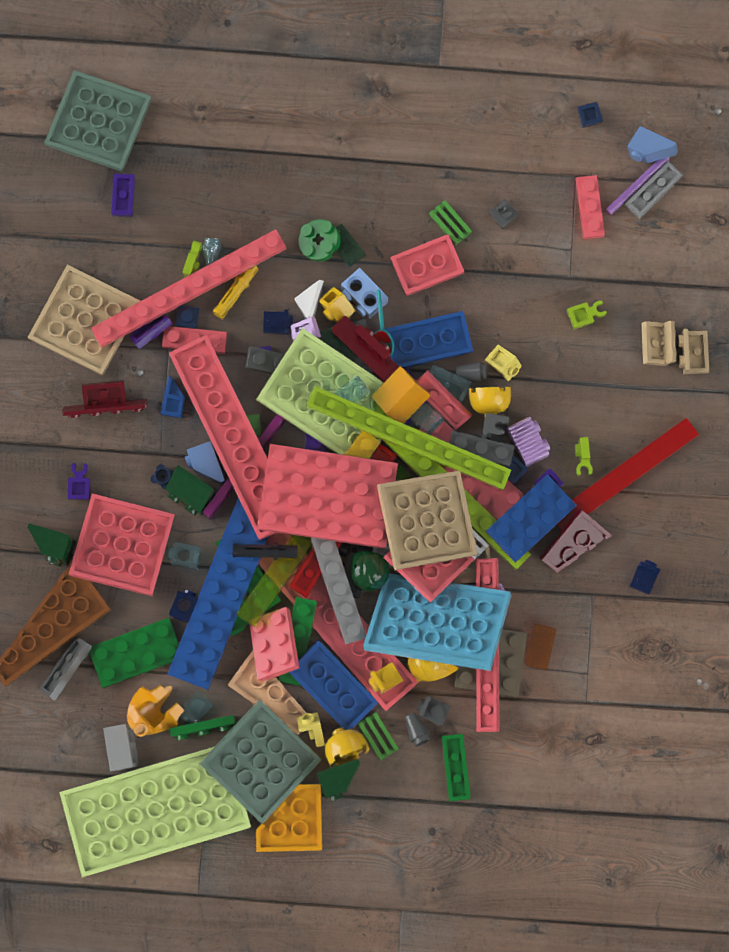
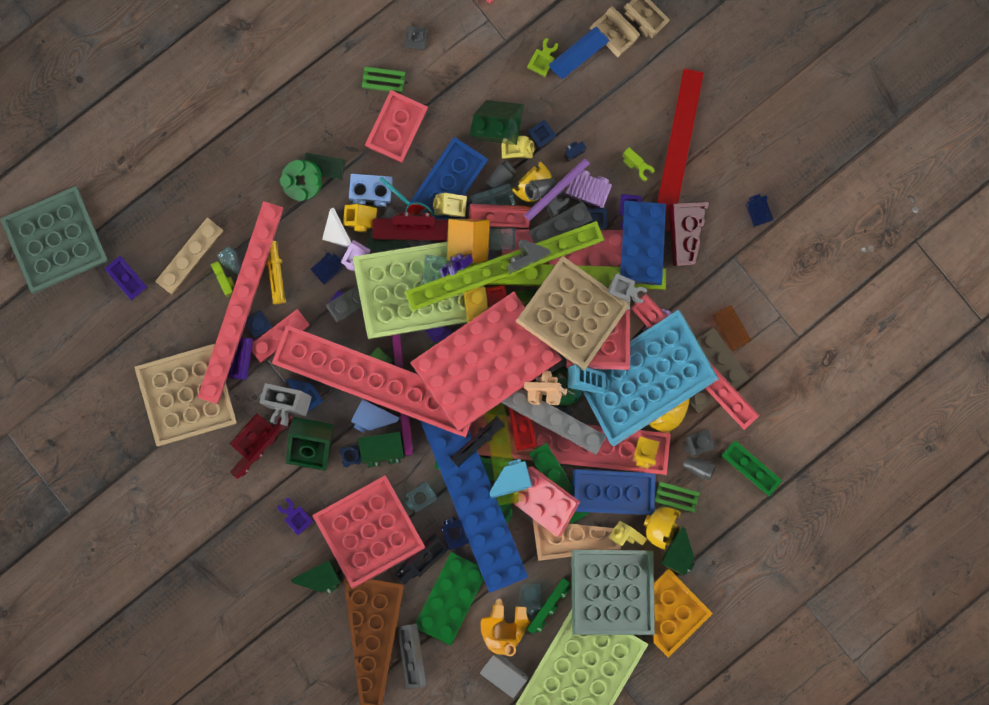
camera: 45 degrees left, 5 degrees up
(141, 439) = (309, 443): none -> dark green slope
(142, 604) = (423, 560): none -> black hinge
(151, 390) = (284, 402): none -> light grey brick
(184, 222) = (189, 256): none -> tan plate
(263, 603) = (512, 479): none -> medium azure slope
(355, 556) = (547, 386): none -> light nougat hips
(374, 402) = (456, 263): none -> dark purple plate
(378, 573) = (575, 383): none -> medium azure slope
(412, 357) = (450, 205): none -> light yellow bracket
(437, 447) = (531, 253): none -> dark grey slope
(483, 537) = (623, 288): none -> light grey plate
(489, 404) = (539, 188): none -> dark grey cone
(502, 416) = (556, 189): none -> medium lavender bar
(505, 329) = (497, 122): none -> dark green slope
(531, 369) = (541, 134): none -> dark blue plate
(545, 403) = (574, 150): none -> dark blue plate
(616, 333) = (579, 52): none -> blue tile

